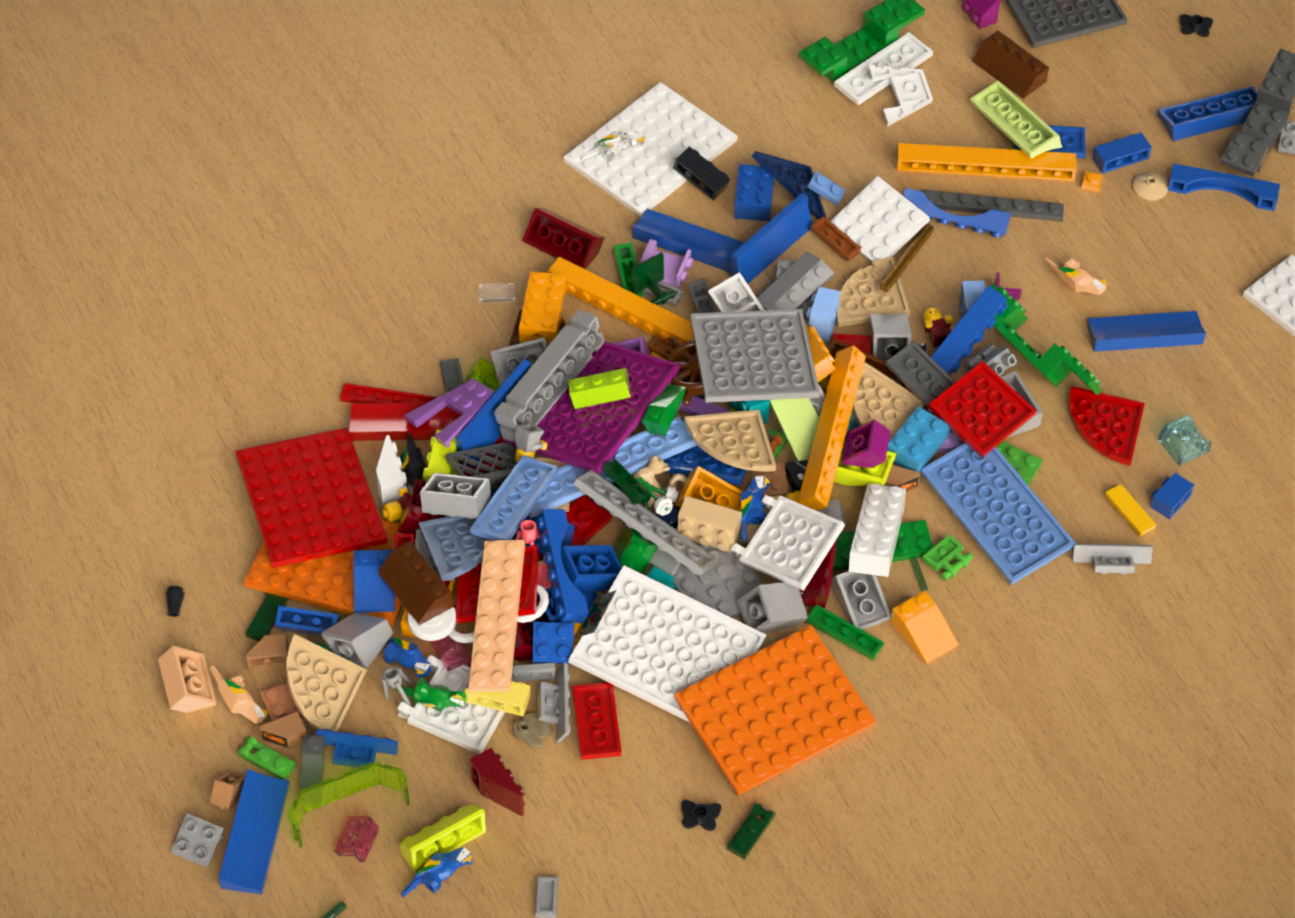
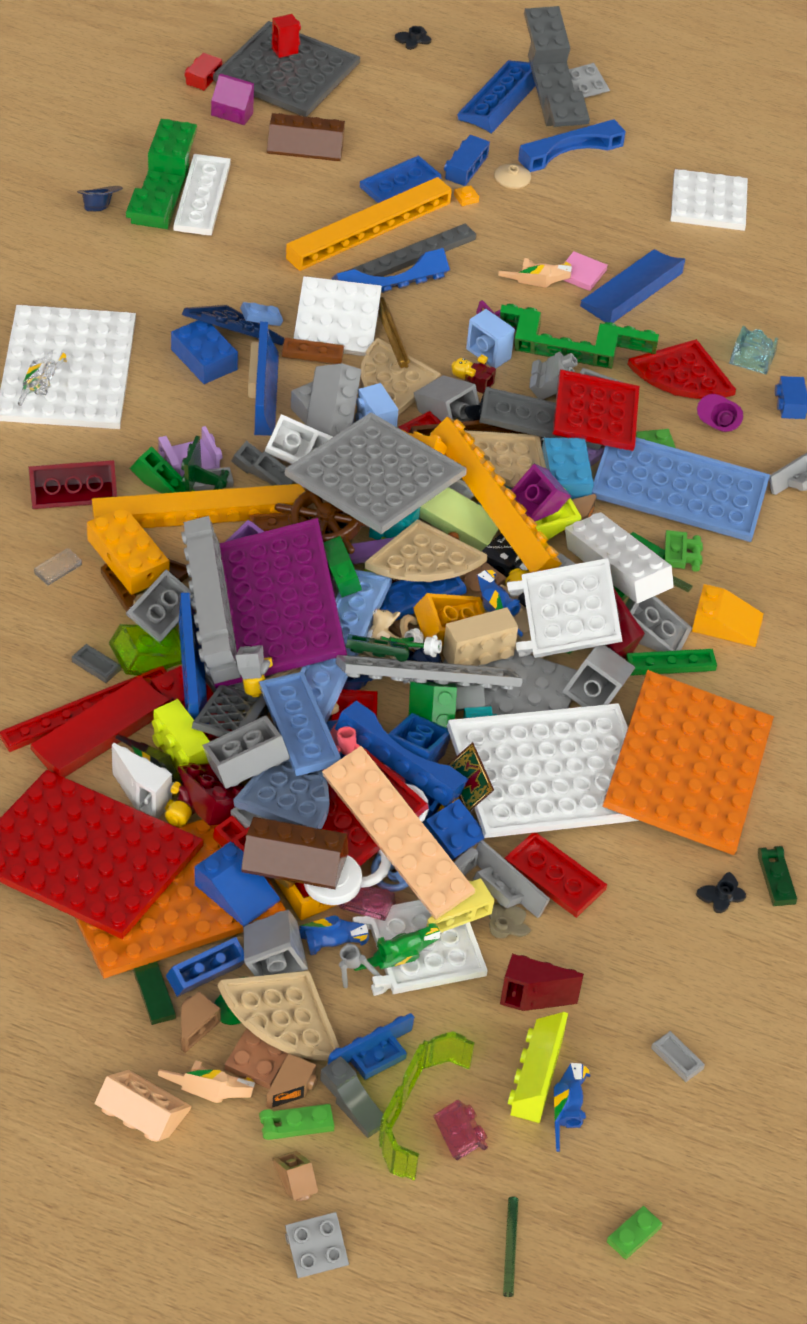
camera: 45 degrees left, 5 degrees down
(174, 599) = (46, 1038): black cone -> none
(253, 833) = (362, 1199): blue arch -> none
(464, 399) = (151, 665): medium lavender wing -> none
(599, 388) = (268, 580): lime slope -> none
(680, 236) = (186, 422): blue arch -> none
(701, 173) = (142, 358): black brick -> none
(799, 29) = (98, 198): none -> dark blue piece
(909, 89) = (243, 198): white wing -> none
(970, 330) = (518, 349): blue brick -> none
(1015, 120) = (361, 175): yellowish green arch -> none
(1092, 471) = (720, 413): none -> magenta piece
(1119, 296) = (585, 271): none -> bright pink tile
(1130, 510) = (772, 428): yellow tile -> none

